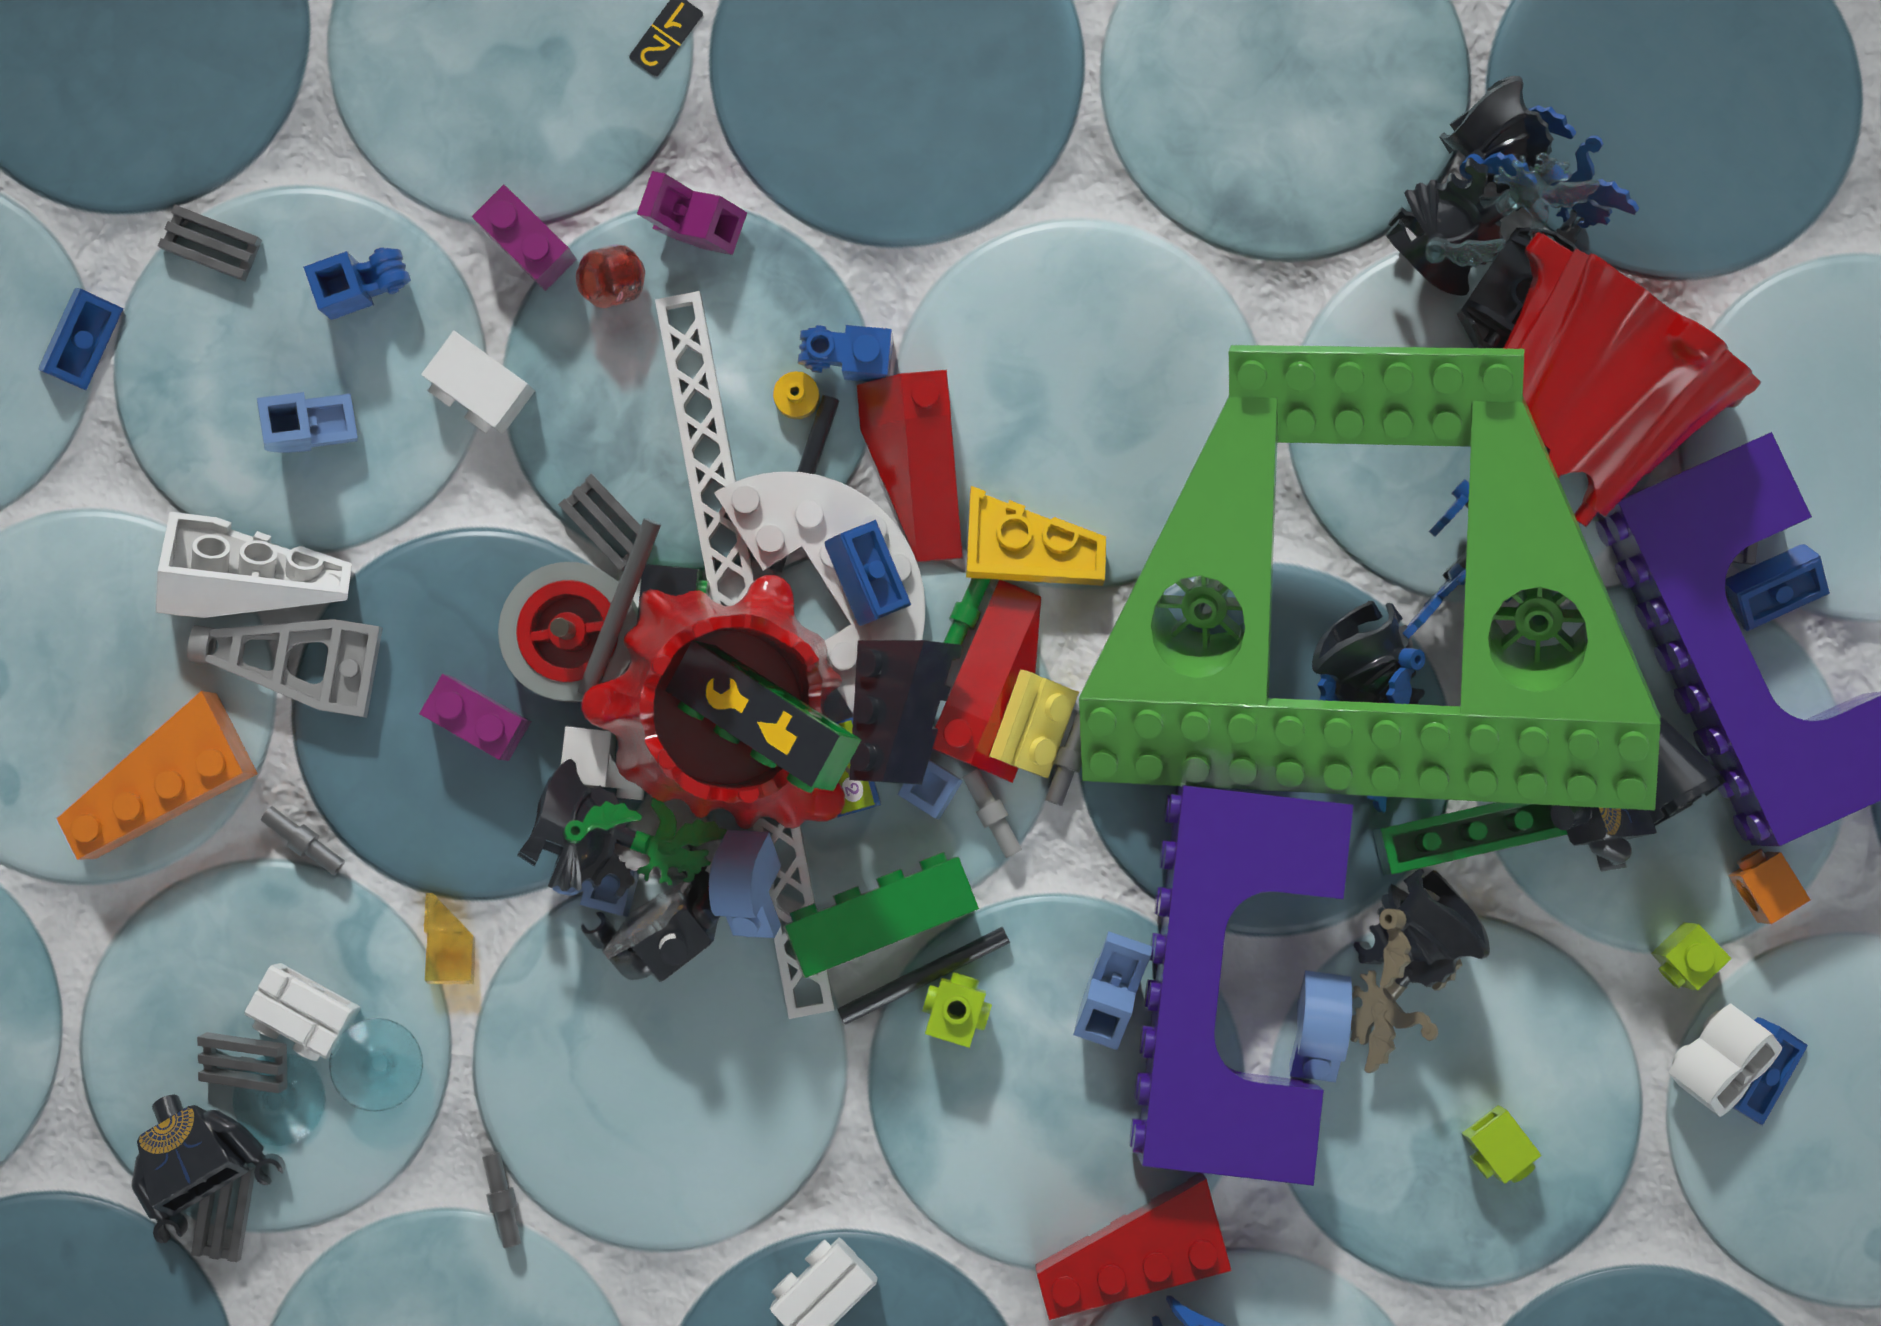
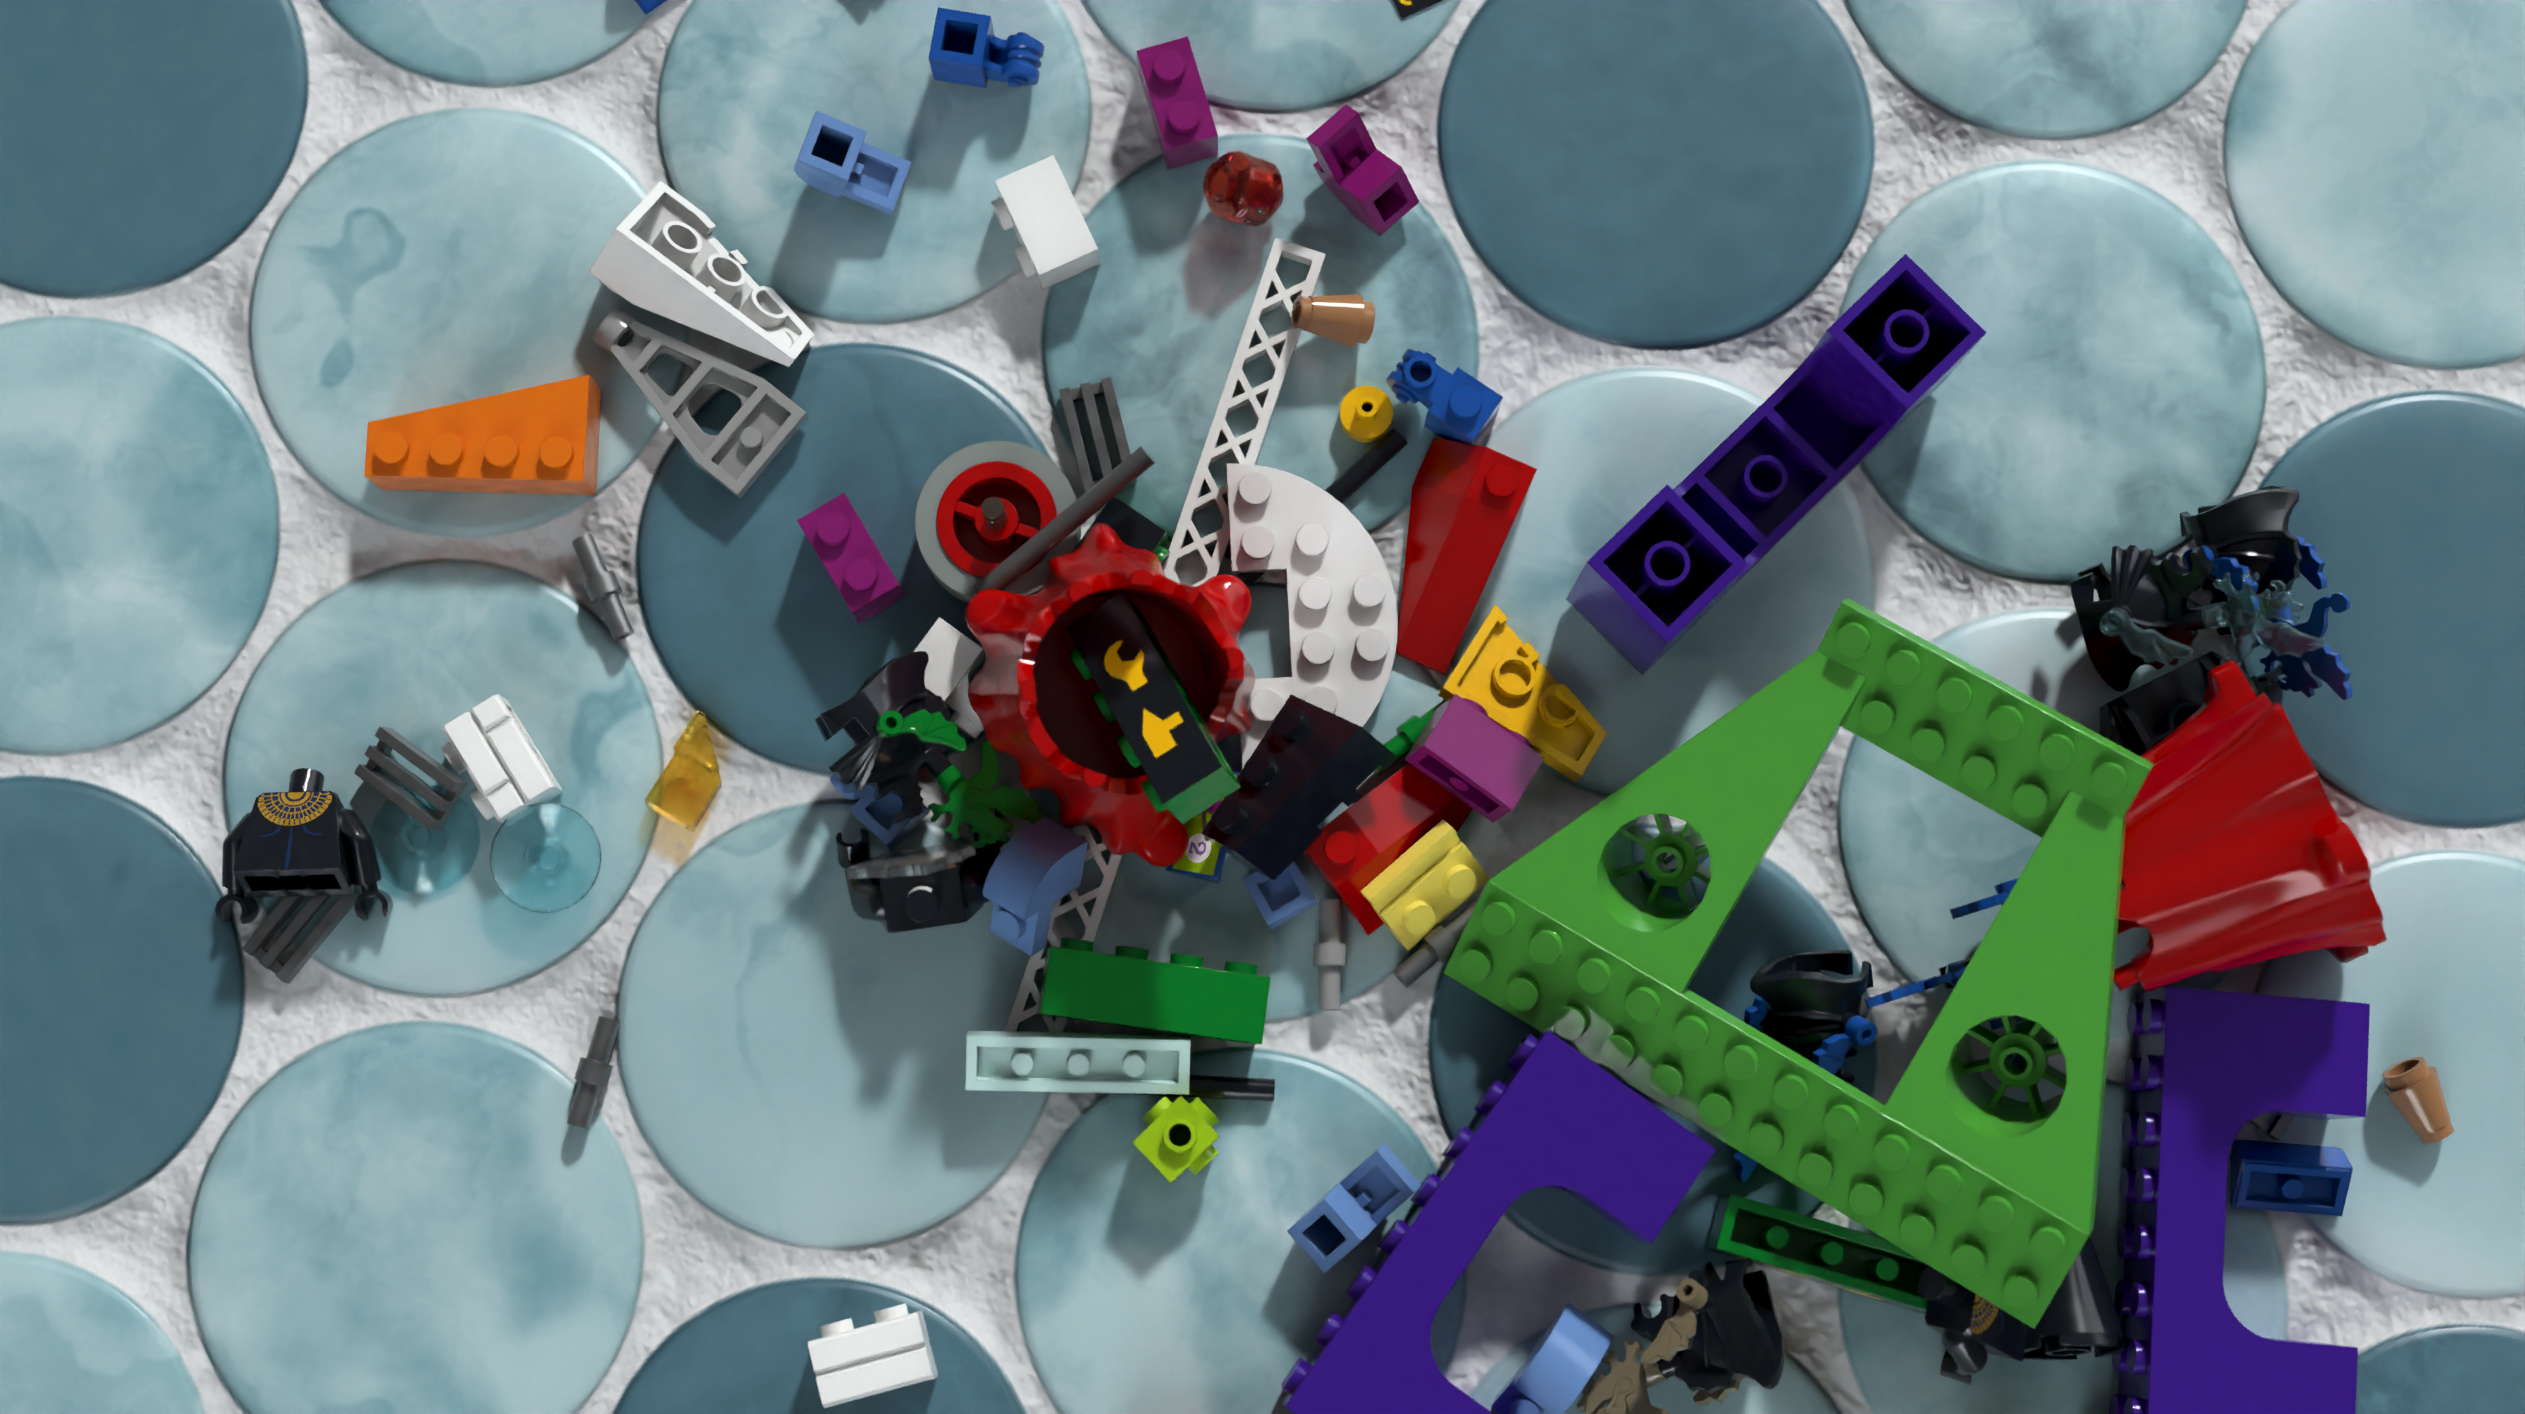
camera: 15 degrees right, 5 degrees down
(734, 335) = (1335, 317): none -> medium nougat cone
(852, 997) = (1077, 1062): none -> light aqua plate
(867, 573) = (1338, 632): blue slope -> none
(1019, 610) = (1475, 757): none -> magenta brick
(1122, 270) = (1775, 466): none -> dark purple arch
(1840, 475) = (2419, 1098): none -> medium nougat cone

